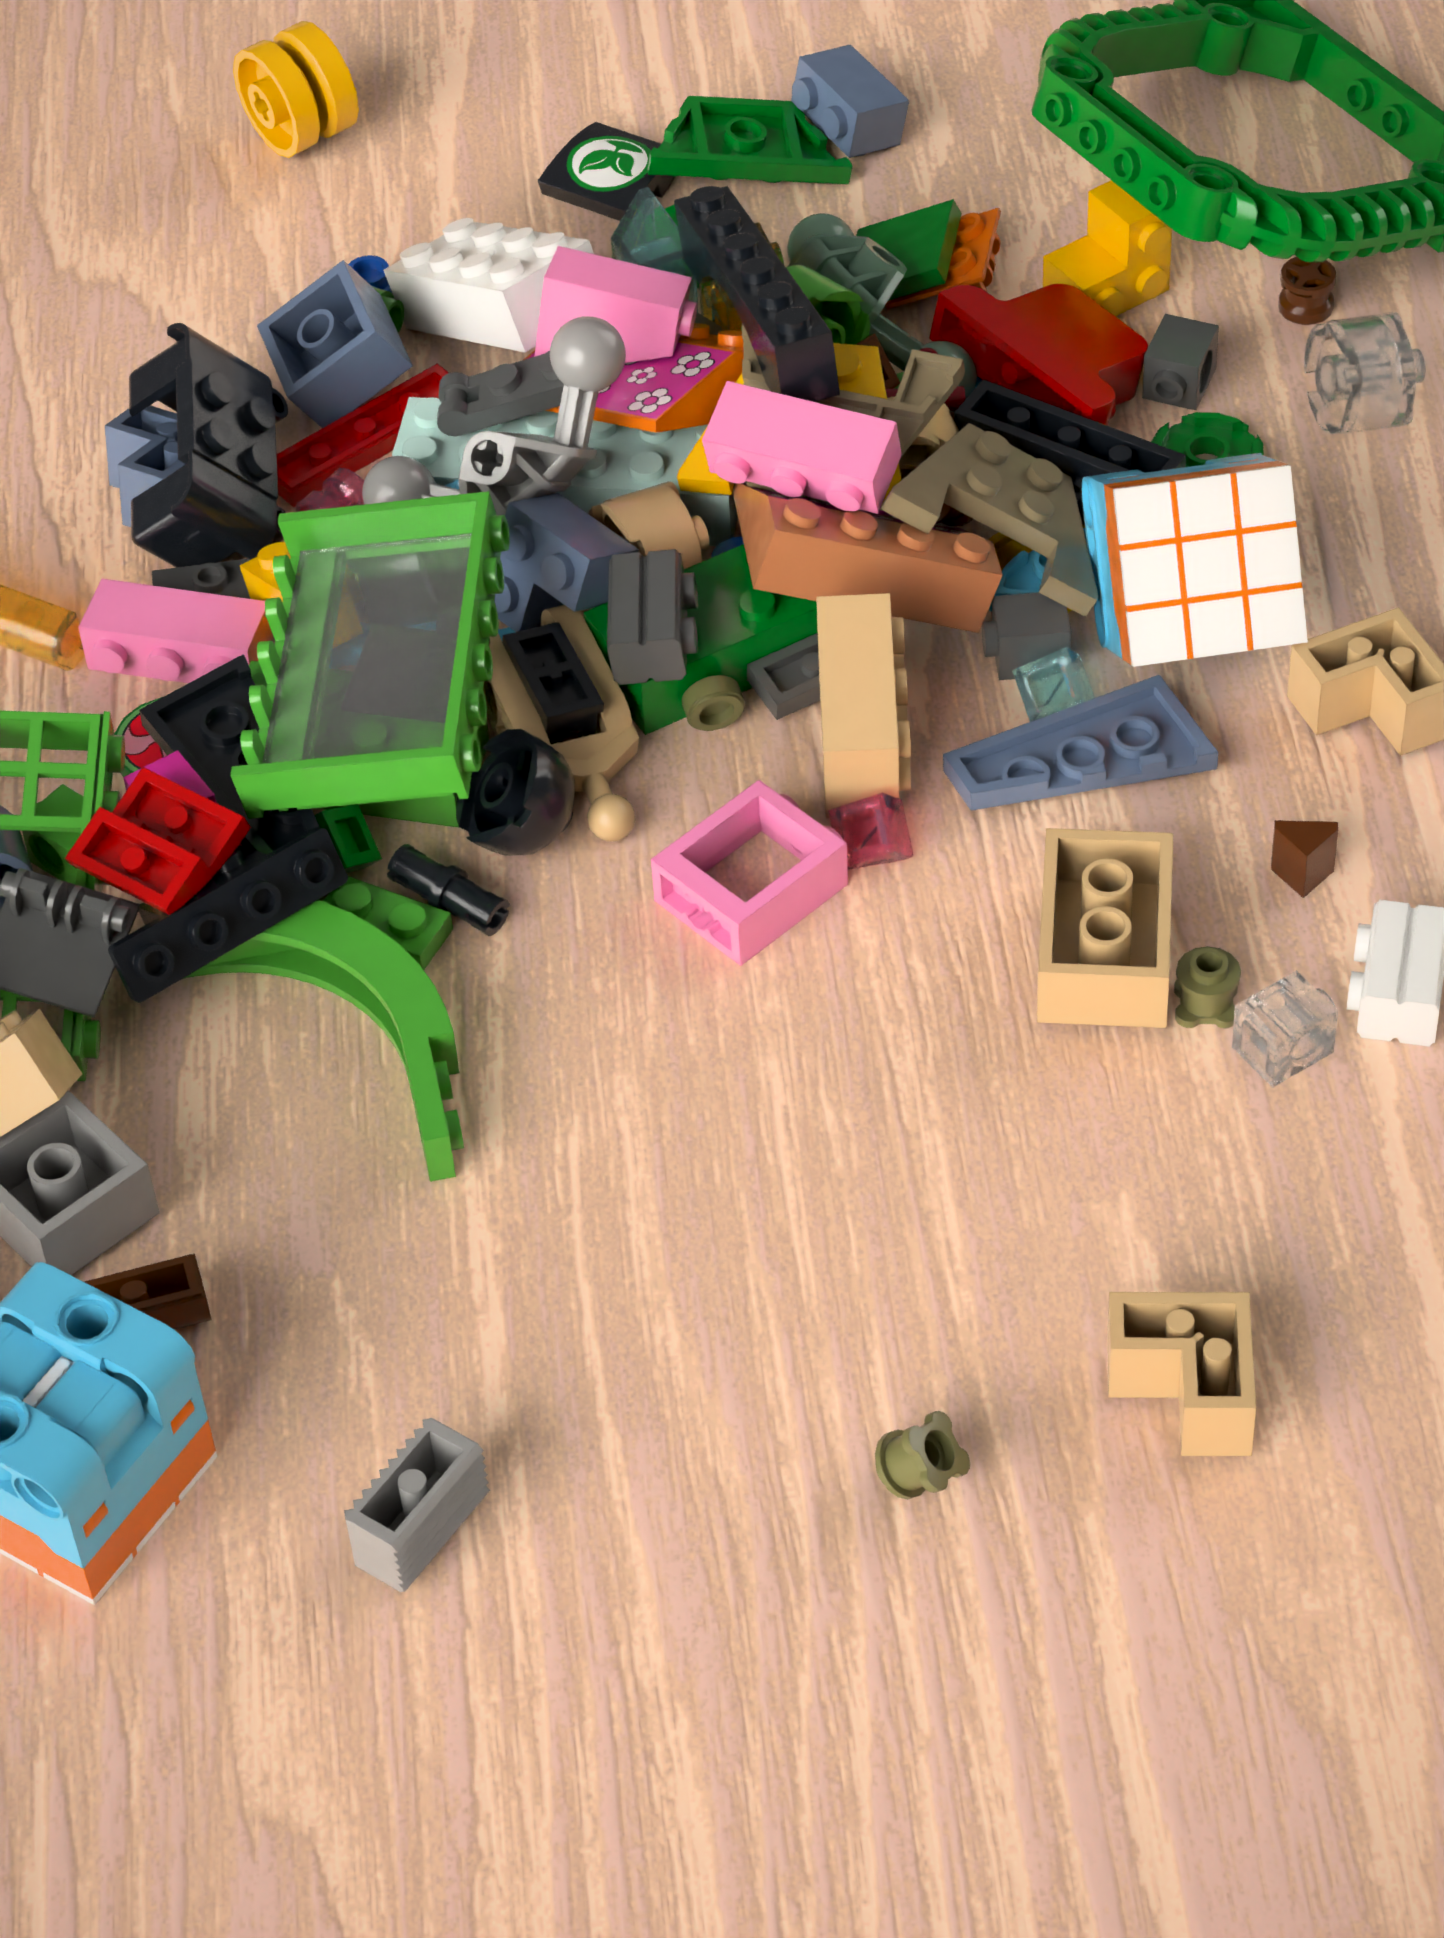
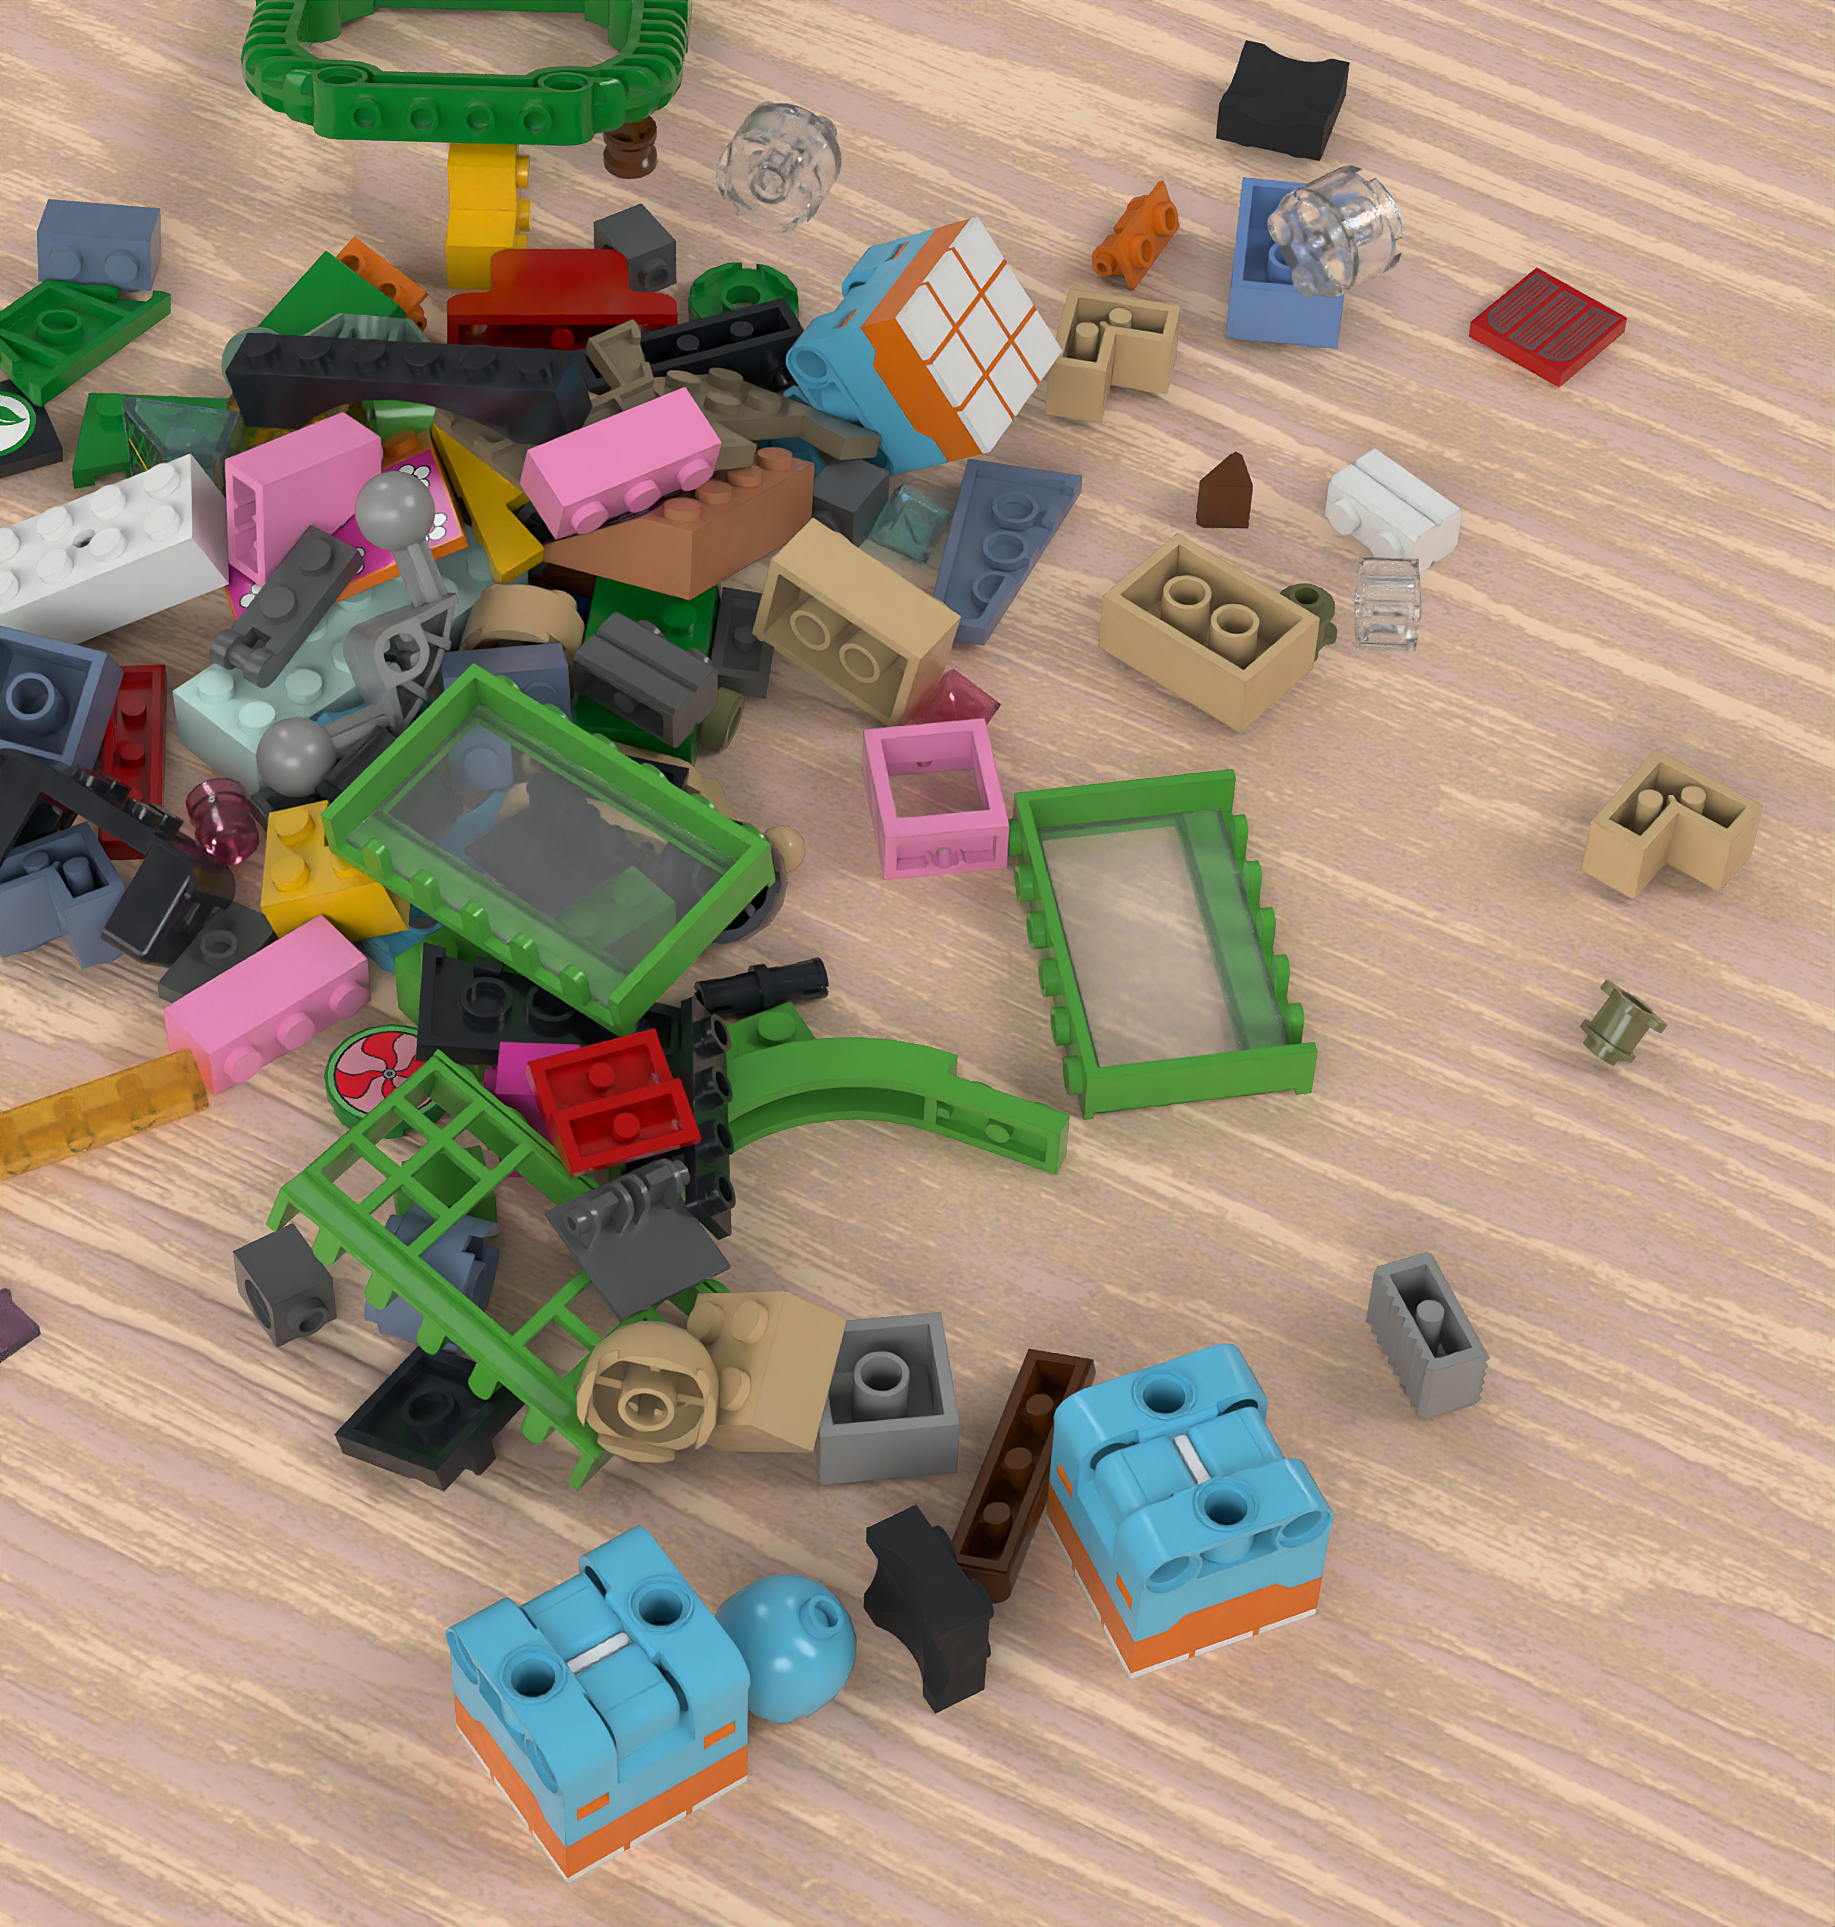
camera: 60 degrees left, 0 degrees up
(725, 1098) = (1156, 944): none -> window

